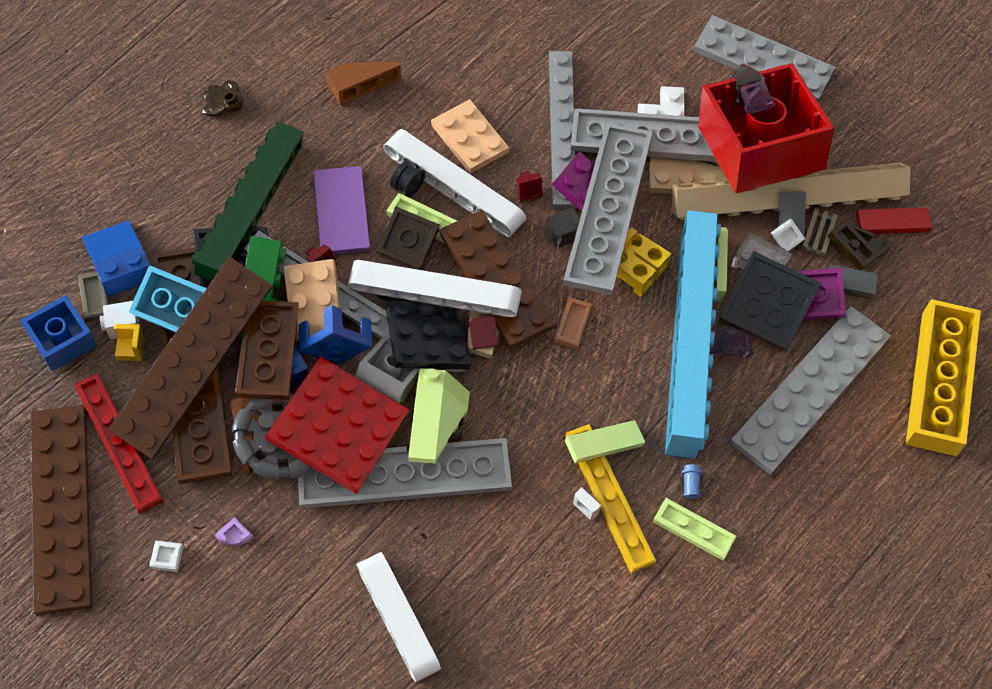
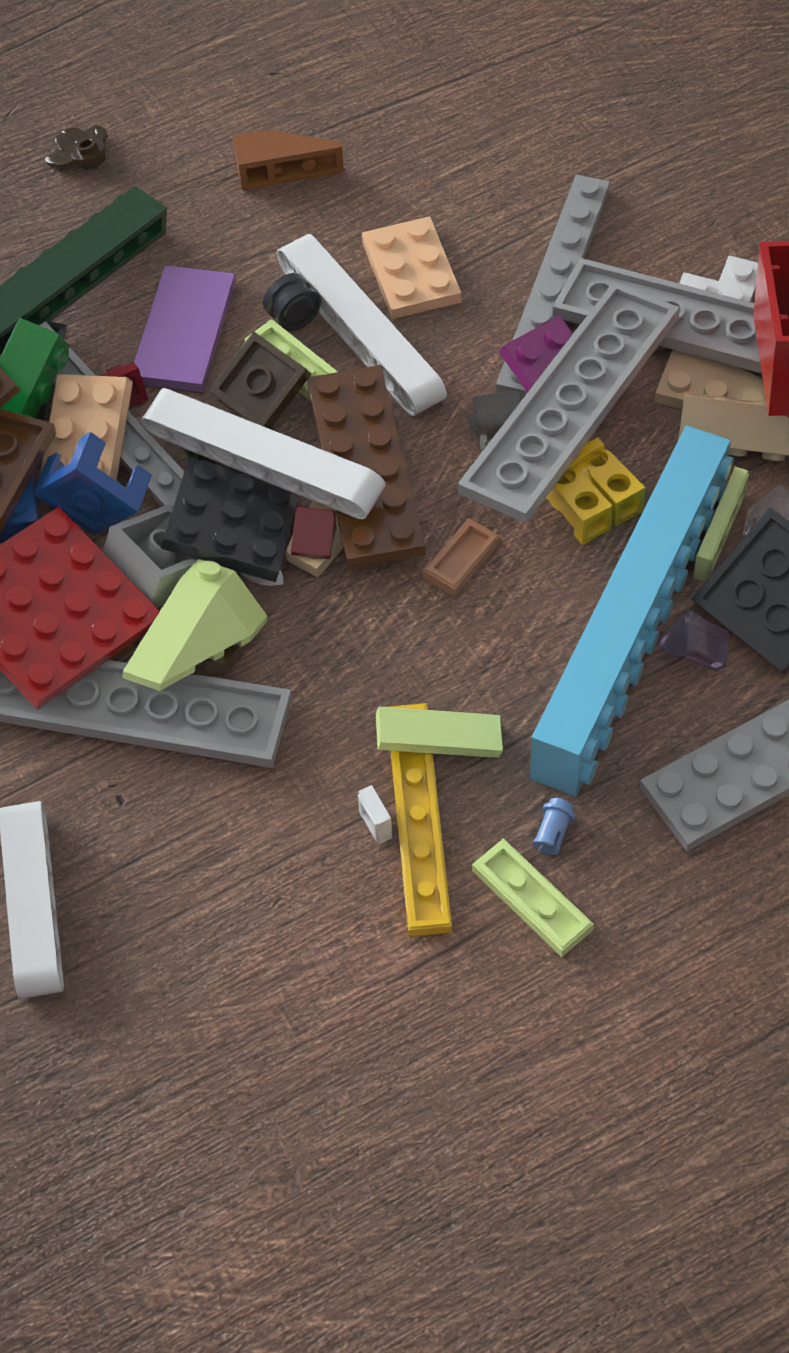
camera: 25 degrees right, 5 degrees down
(529, 186) = (468, 352): dark red tile -> none

